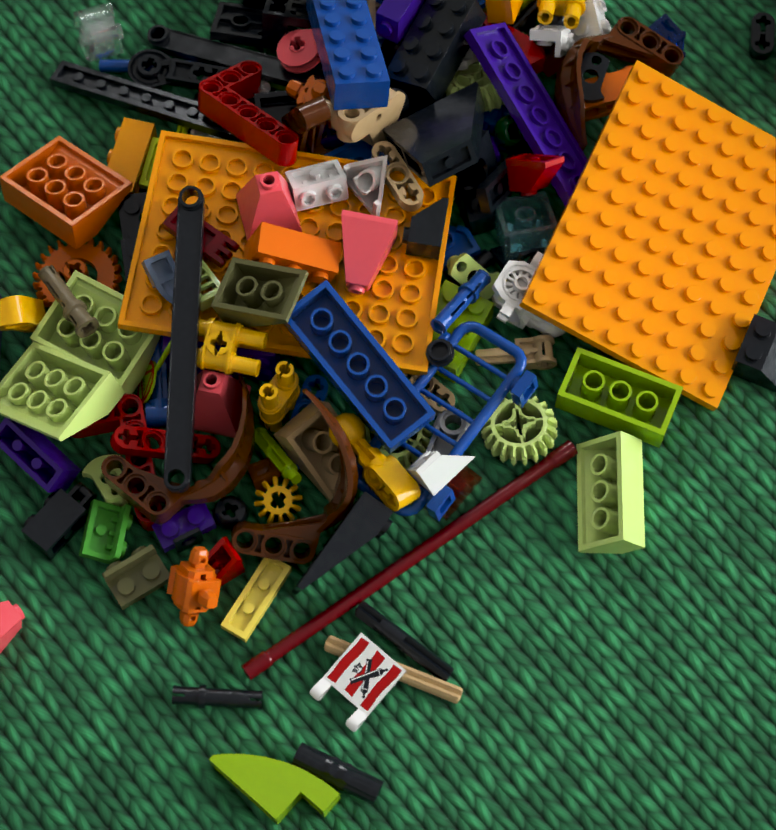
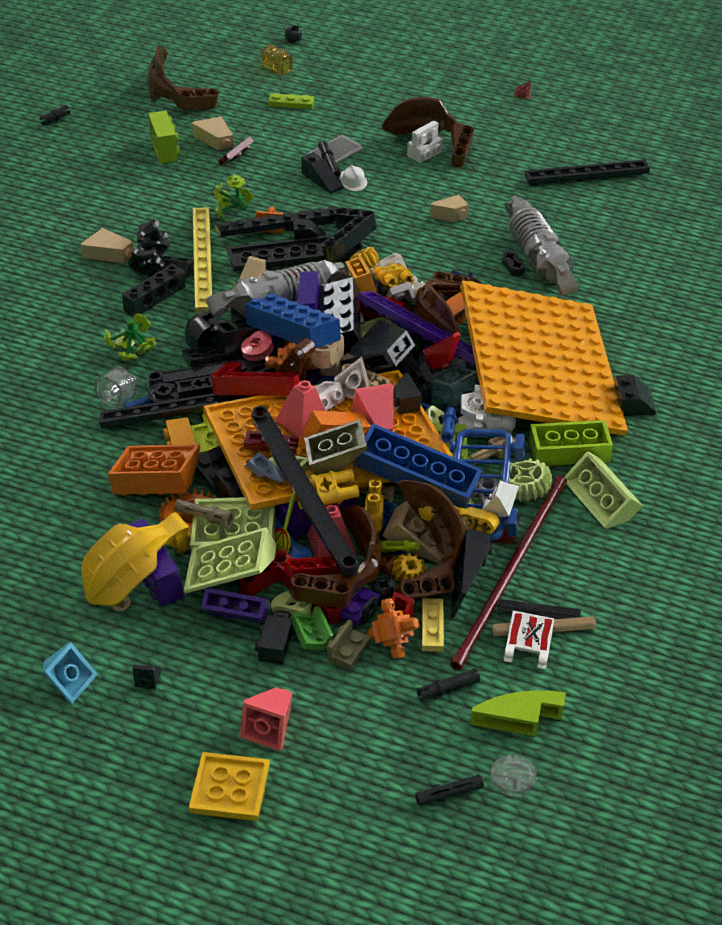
camera: 30 degrees left, 25 degrees down
(338, 773) = (572, 688): black axle -> none
(440, 353) = (457, 449): black plate -> none

